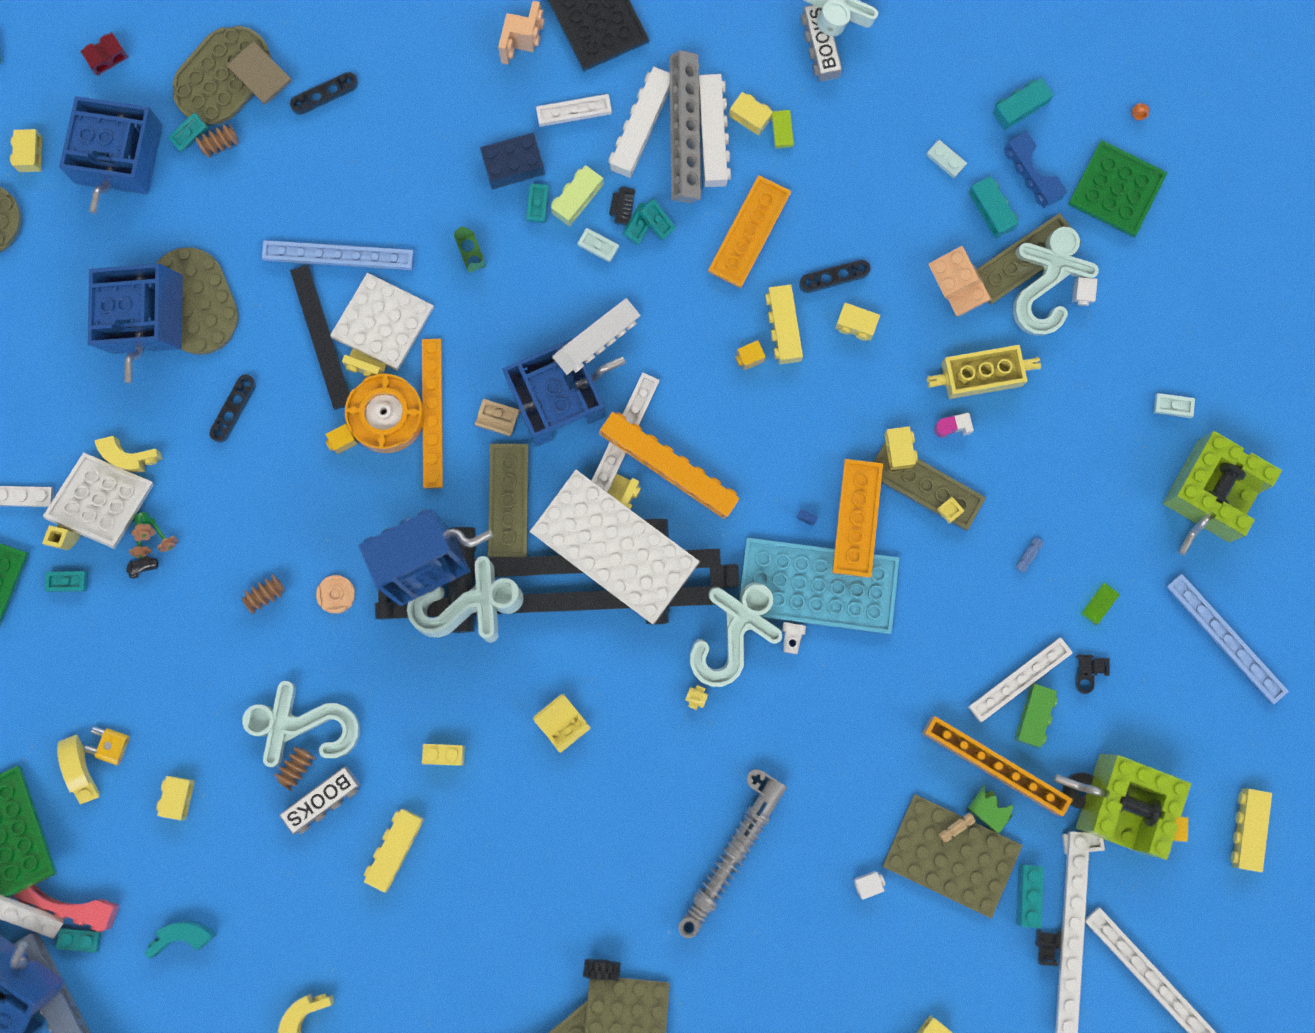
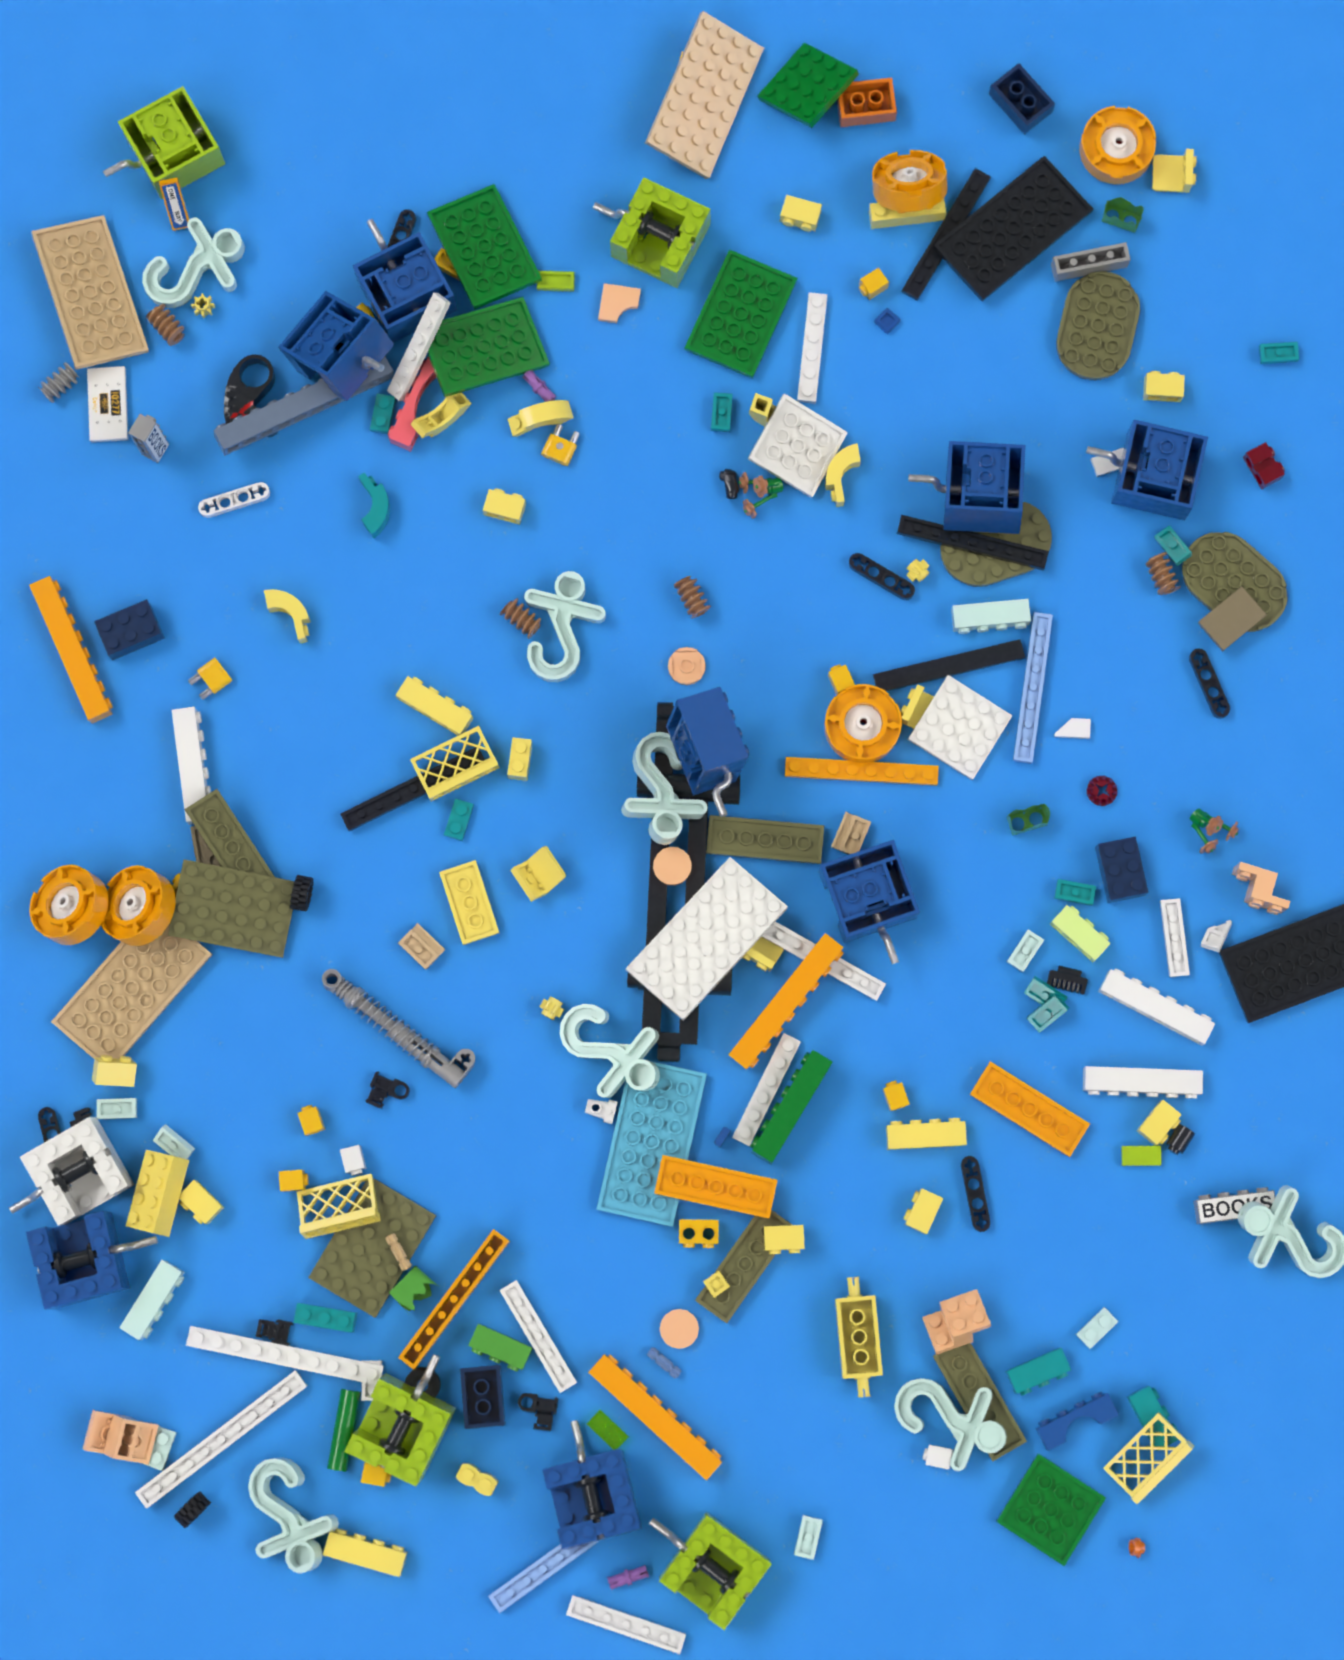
camera: 100 degrees right, 0 degrees up
(43, 774) = (539, 387): none -> medium lavender pin
(78, 874) = (441, 416): none -> light yellow arch
(108, 202) = (1103, 465): none -> white tile
(193, 321) = (973, 542): none -> black tile
(224, 372) = (918, 570): none -> light yellow gear
(267, 299) = (991, 615): none -> light aqua brick
(320, 800) = (488, 640): brick -> none
(377, 213) = (1075, 728): none -> white tile
(436, 193) = (1103, 799): none -> dark red gear
(457, 91) = (1202, 819): none -> plant
(468, 813) = (462, 778): none -> light yellow fence
(482, 863) = (401, 794): none -> black plate
(510, 812) = (458, 819): none -> teal plate
(543, 588) = (672, 866): none -> light nougat tile
(569, 73) = (1216, 936): none -> white tile
(596, 336) = (921, 937): white brick -> none
(596, 792) = (469, 902): none -> light yellow plate
(645, 837) = (421, 946): none -> tan plate
(685, 127) = (1154, 1044): light grey brick -> none
(755, 479) = (766, 1089): none -> white plate
(764, 94) = (1180, 1139): none -> black brick
(772, 451) = (791, 1107): none -> green brick
(793, 863) = (382, 1087): none -> black piece
(834, 933) = (311, 1120): none -> yellow brick
(895, 532) = (698, 1227): none -> yellow brick
(896, 945) = (293, 1180): none -> yellow brick
(934, 890) = (338, 1222): none -> light yellow fence
(954, 424) = (806, 1297): leg -> none
(995, 543) = (679, 1328): none -> light nougat tile
(1073, 91) = (1161, 1470): none -> light yellow fence
(1082, 558) = (654, 1416): none -> light orange brick
(1087, 728) = (482, 1396): none -> dark blue brick
(1135, 865) = (343, 1429): none -> green brick
(1164, 730) = (472, 1476): none -> light yellow brick
(1171, 610) = (592, 1496): none -> blue piece
(1235, 571) = (628, 1577): none -> medium lavender pin
(1237, 1012) = (192, 1509): none -> black tyre
(1246, 900) = (298, 1533): none -> light aqua piece
(1279, 569) = (626, 1624): none -> white plate

